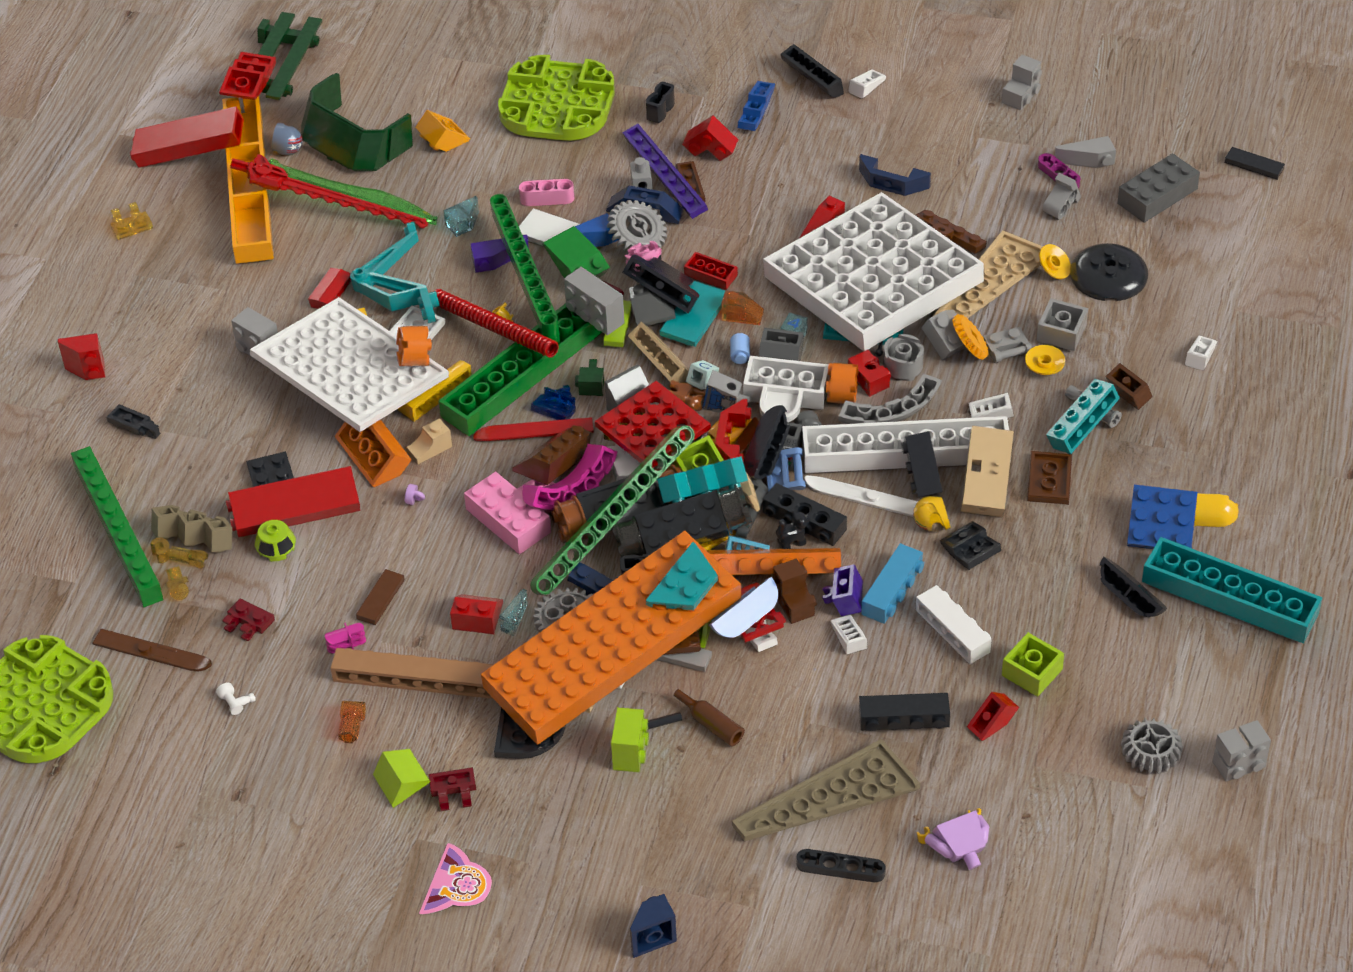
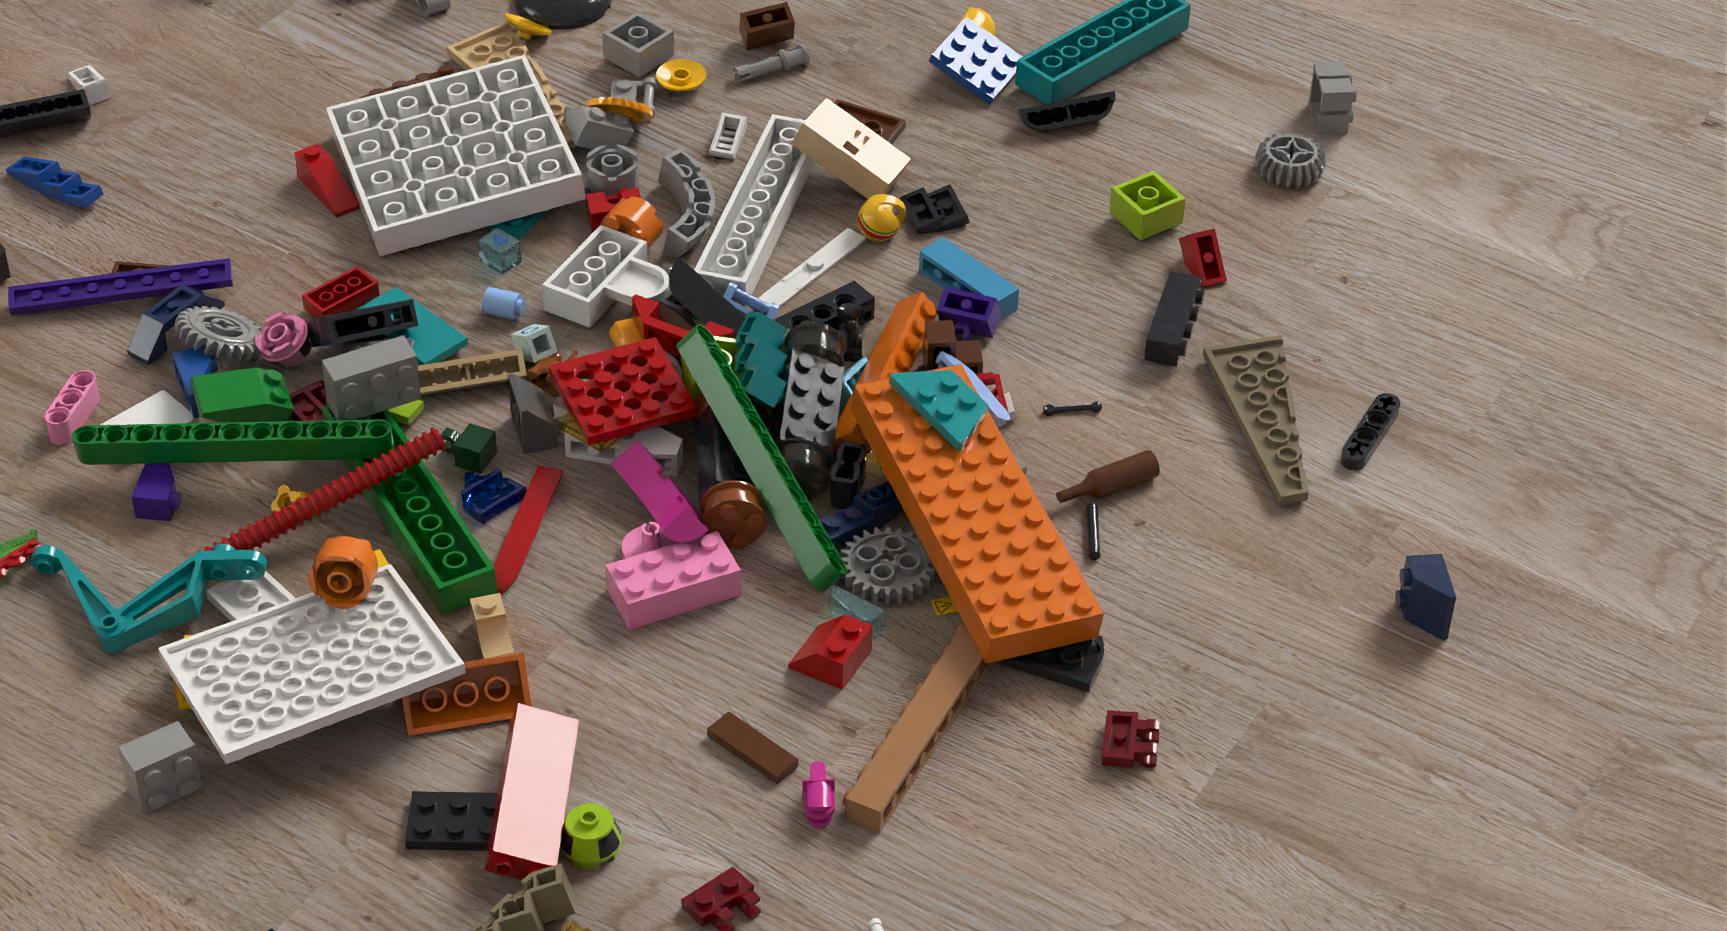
camera: 75 degrees left, 5 degrees down
(330, 287) = (102, 675): red piece -> none
(351, 716) = (961, 816): clear orange piece -> none
(399, 775) = (1095, 787): lime slope -> none
(412, 494) = (582, 670): lavender tile -> none
(456, 882) = (1281, 775): sticker -> none
(462, 216) = (56, 502): clear light blue slope -> none
(555, 455) = (604, 502): reddish brown slope -> none
(629, 740) = (1130, 548): lime brick -> none
(640, 172) = (123, 306): light grey torso -> none
(710, 136) = (95, 227): red brick -> none
(722, 393) = (582, 330): light grey torso -> none
(741, 308) = (430, 286): clear orange slope -> none
(777, 669) = (1049, 410): none -> black hinge
(781, 344) = (531, 265): dark grey slope -> none
(852, 645) = (1031, 335): white slope -> none
(916, 182) = (259, 120): dark blue slope -> none
(921, 465) = (812, 196): black brick -> none
(953, 624) = (1054, 251): white brick -> none
(959, 838) = (1372, 324): lavender torso -> none
(1082, 416) = (797, 64): teal brick -> none

